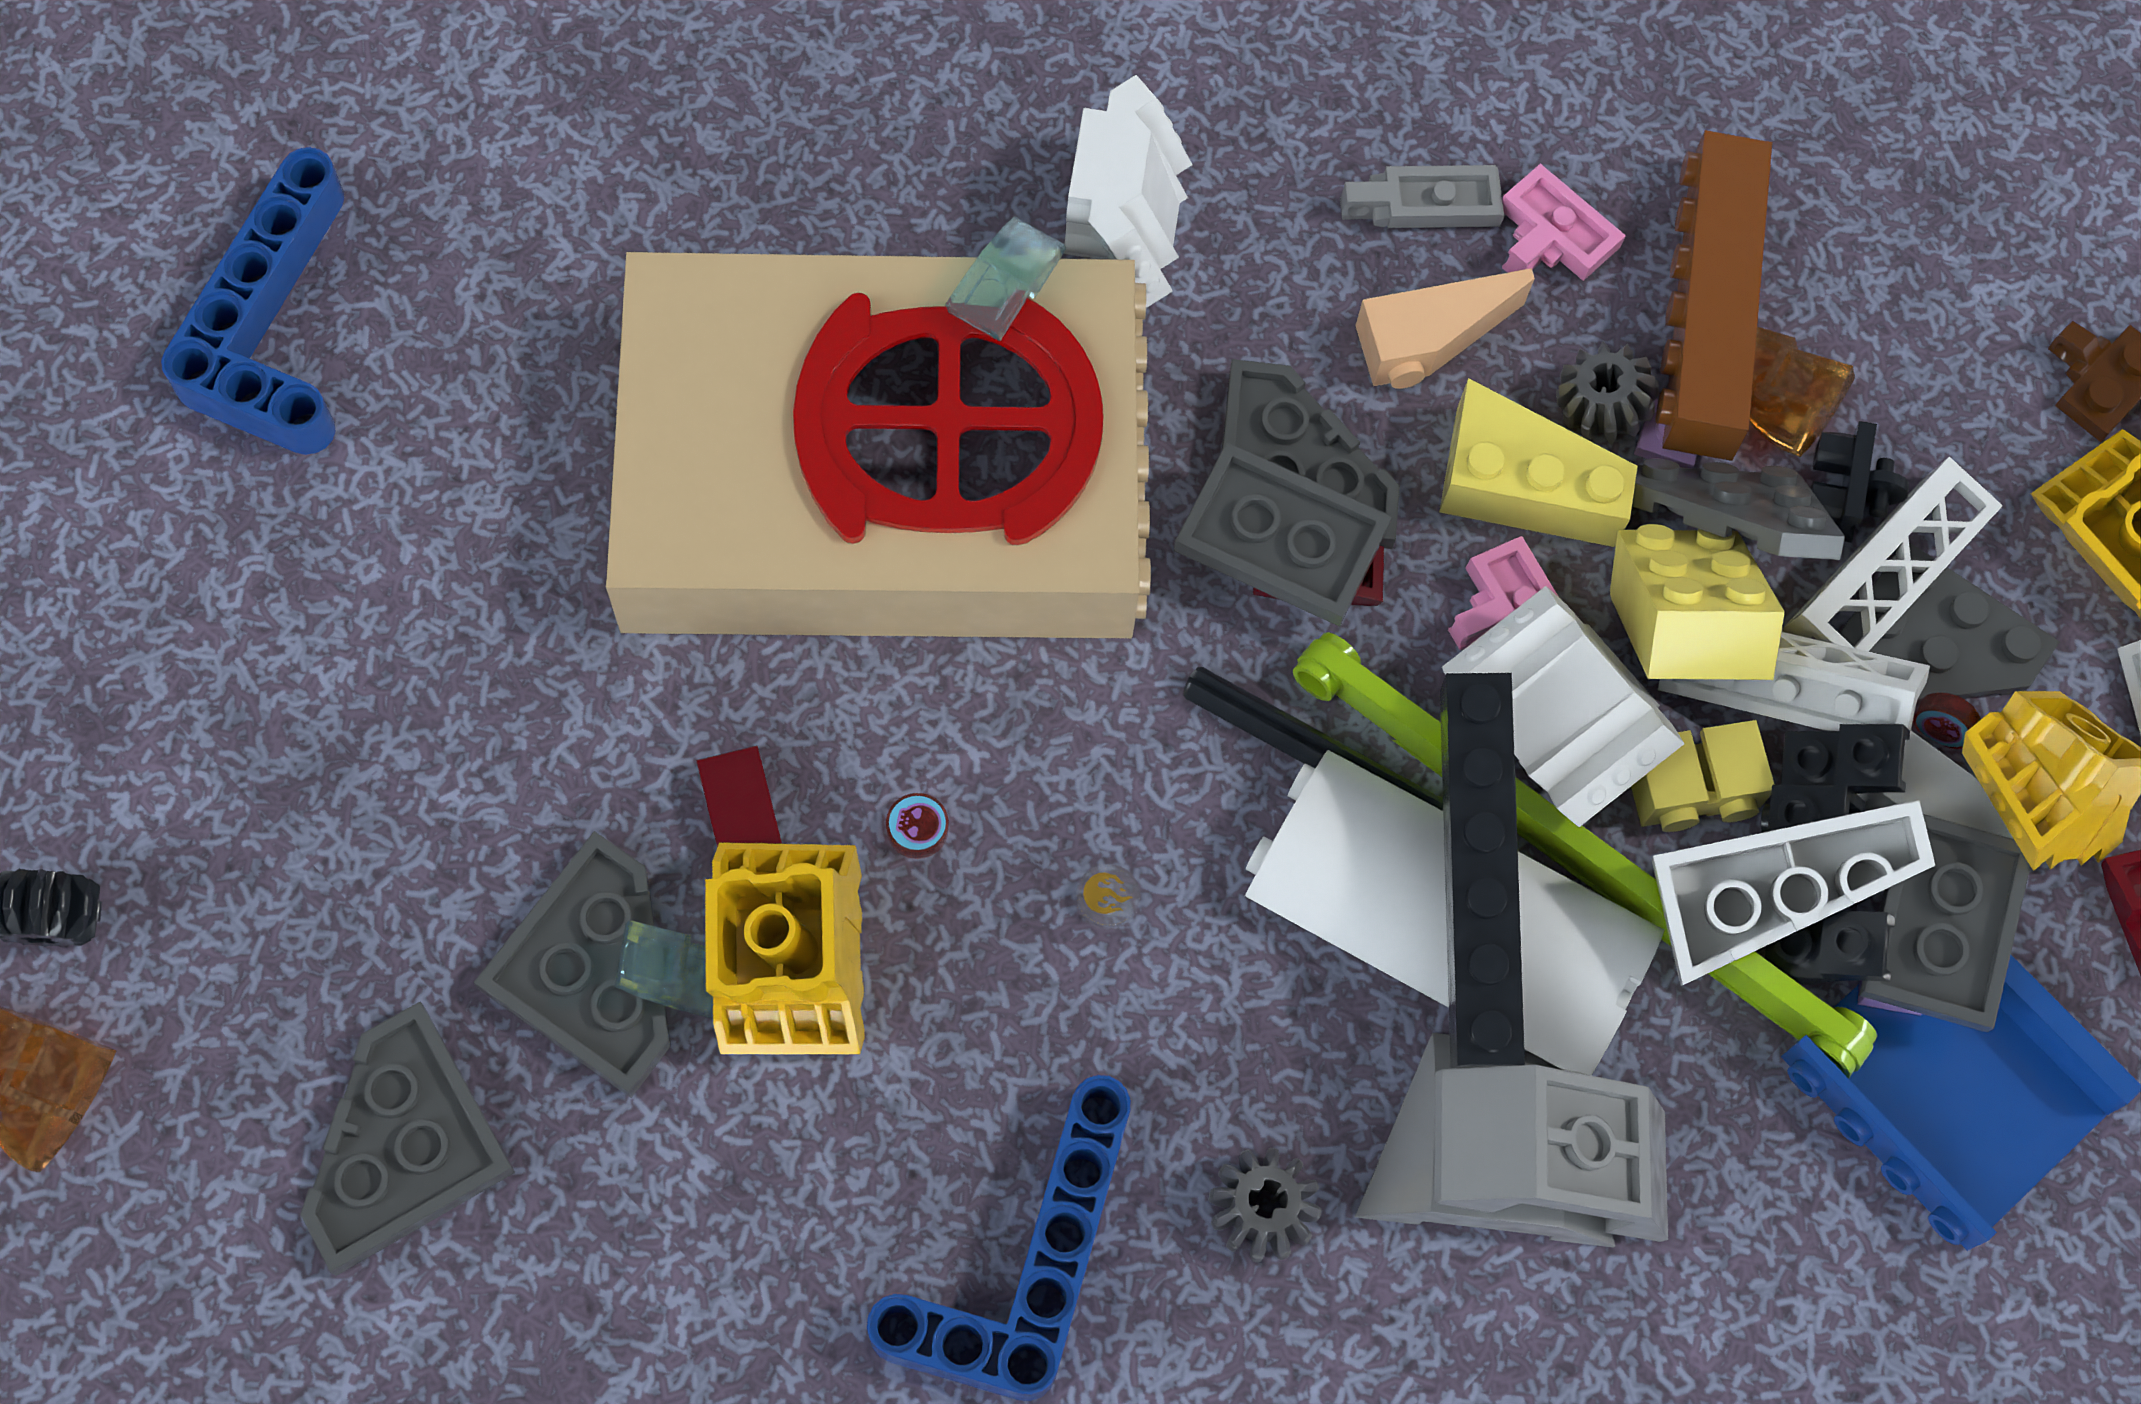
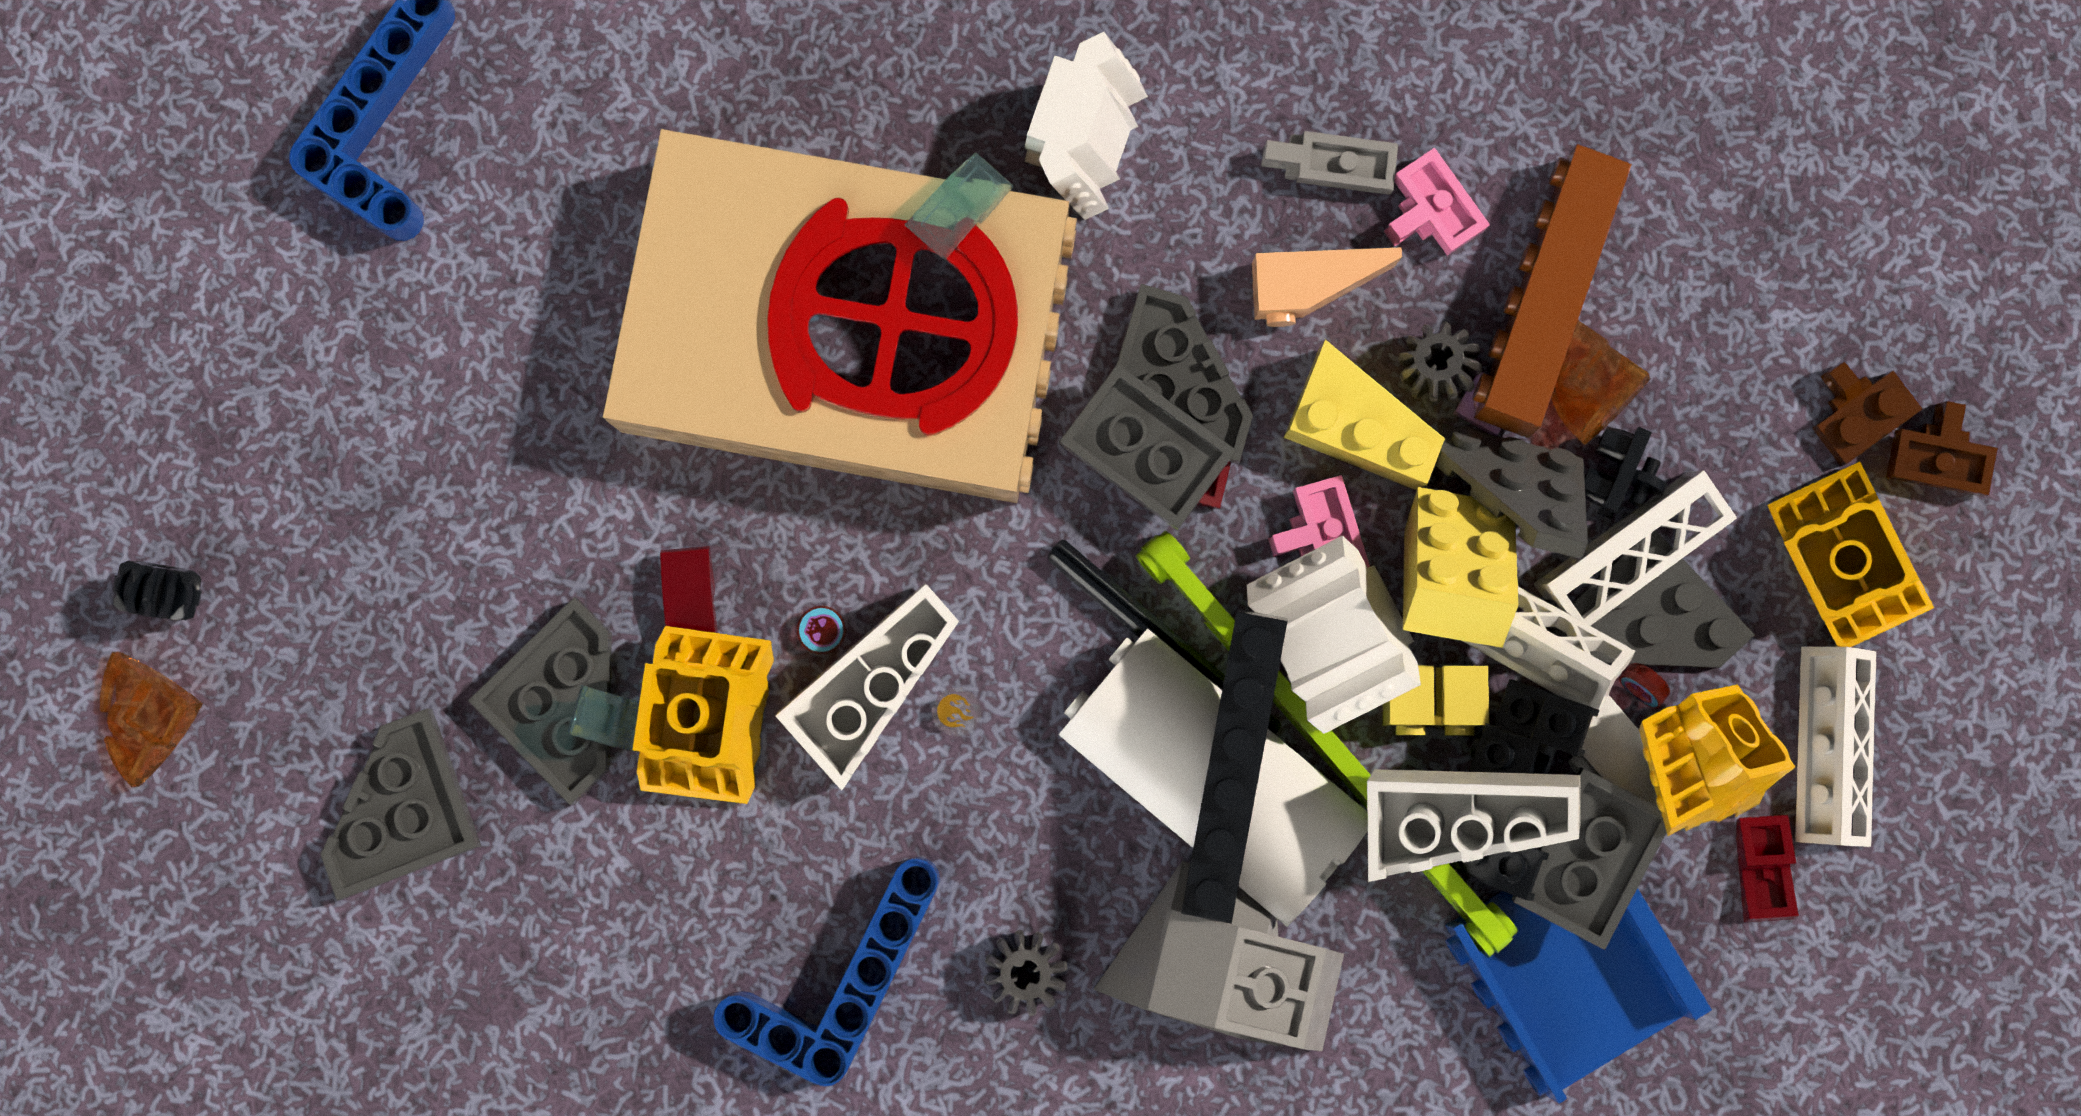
camera: 15 degrees right, 15 degrees up
(990, 873) = (867, 685): none -> white wedge

